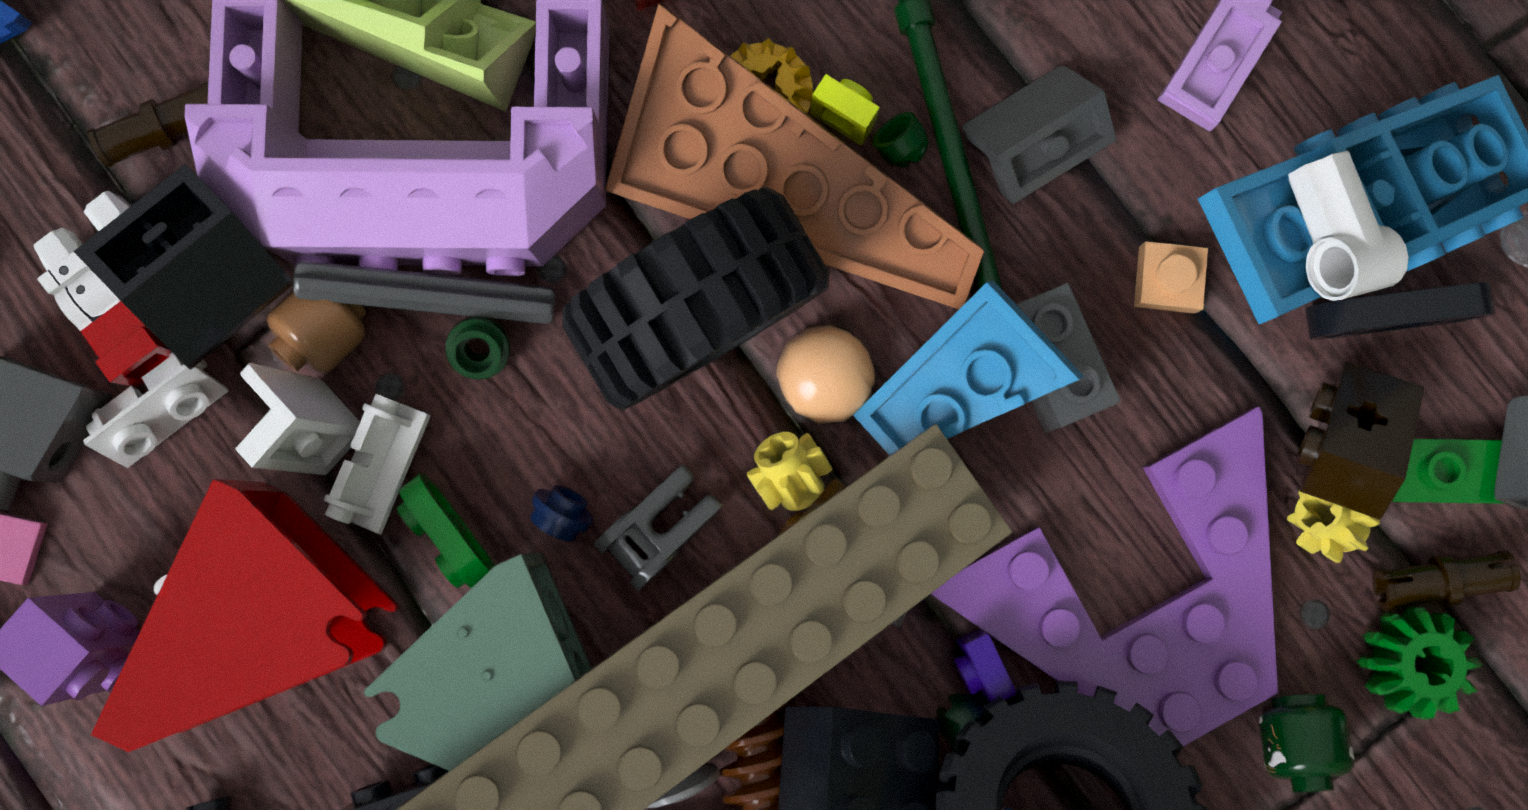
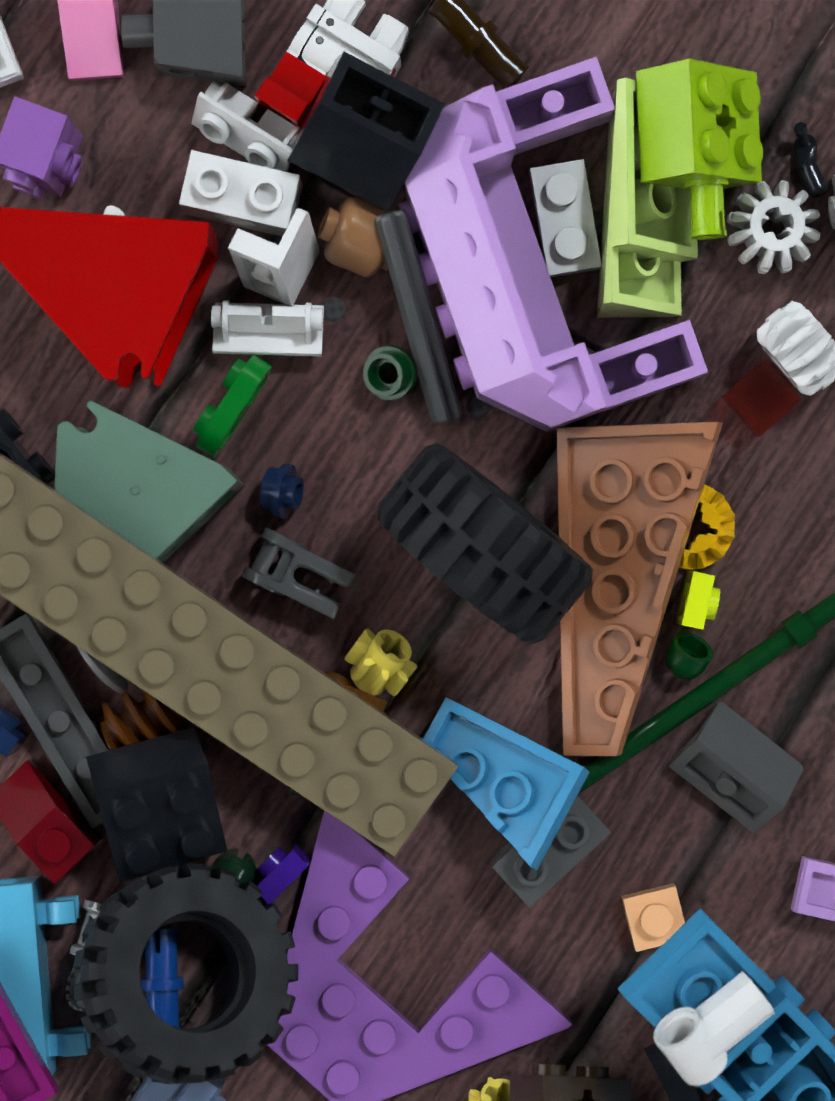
camera: 75 degrees right, 5 degrees up
(205, 437) = (240, 193): none -> white brick
(385, 103) = (565, 218): none -> white plate
(825, 374) = (472, 662): light nougat hair -> none

